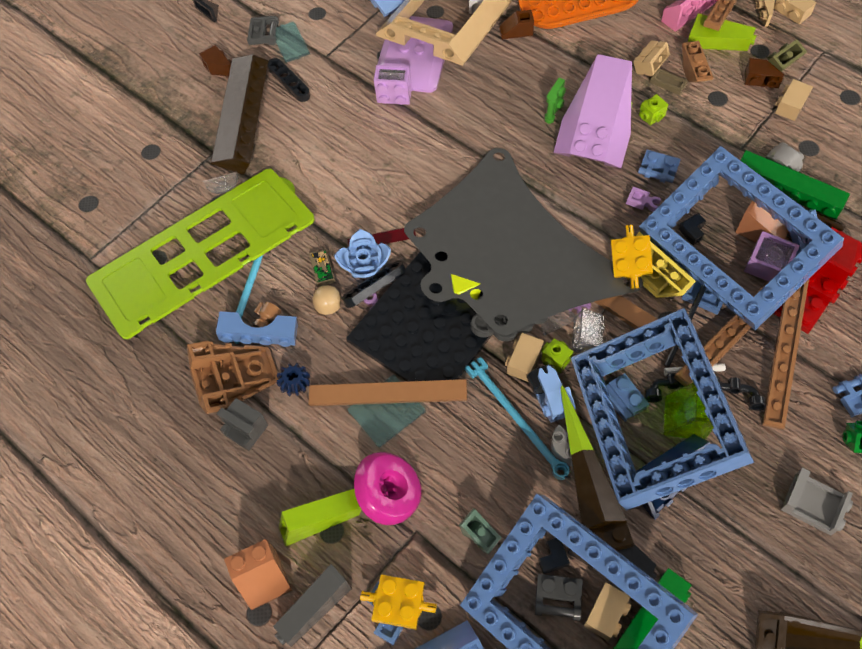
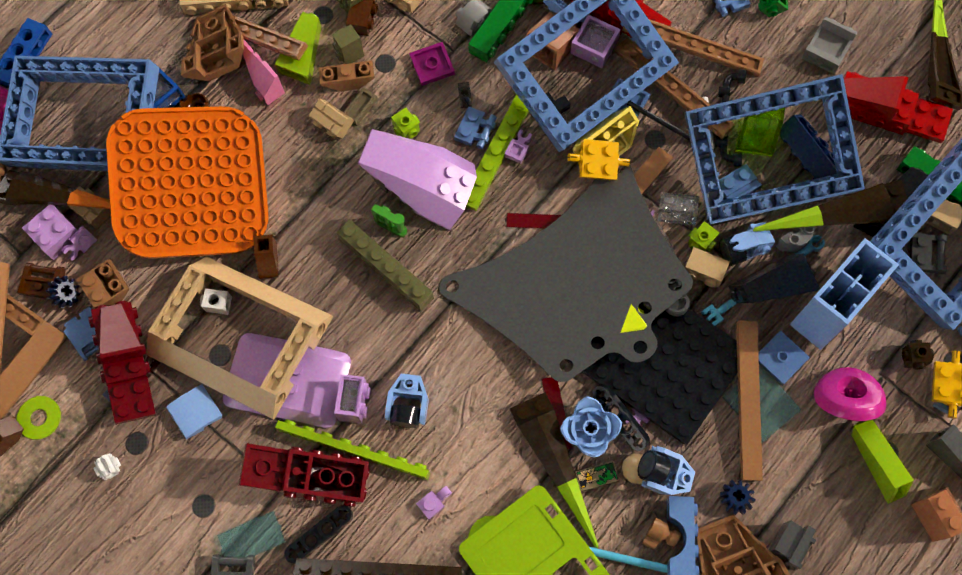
camera: 90 degrees left, 10 degrees up
(306, 150) = (432, 503): none -> lavender plate
(313, 325) = (659, 466): none -> piece
(329, 56) = (305, 474): none -> dark red wedge
(351, 97) = (345, 446): none -> lime plate
(374, 219) = (542, 432): none -> dark brown plate
(403, 129) = (406, 415): none -> light blue piece
(432, 430) = (781, 357): none -> medium blue plate
(436, 573) = (917, 355): none -> dark brown brick
(480, 531) = (881, 315): sand green slope -> none
(485, 458) = (844, 294): none -> light blue brick
(508, 417) = (777, 280): none -> black slope
(513, 104) = (385, 265): none -> olive brick
(568, 213) = (530, 220): none -> dark red sticker
(626, 181) = (495, 152): none -> lime plate
(691, 154) = (464, 95): none -> clear smoke piece
(723, 131) = (432, 63): none -> magenta tile
(726, 61) = (347, 45): none -> olive brick
(742, 567) = (893, 108): none -> red wedge

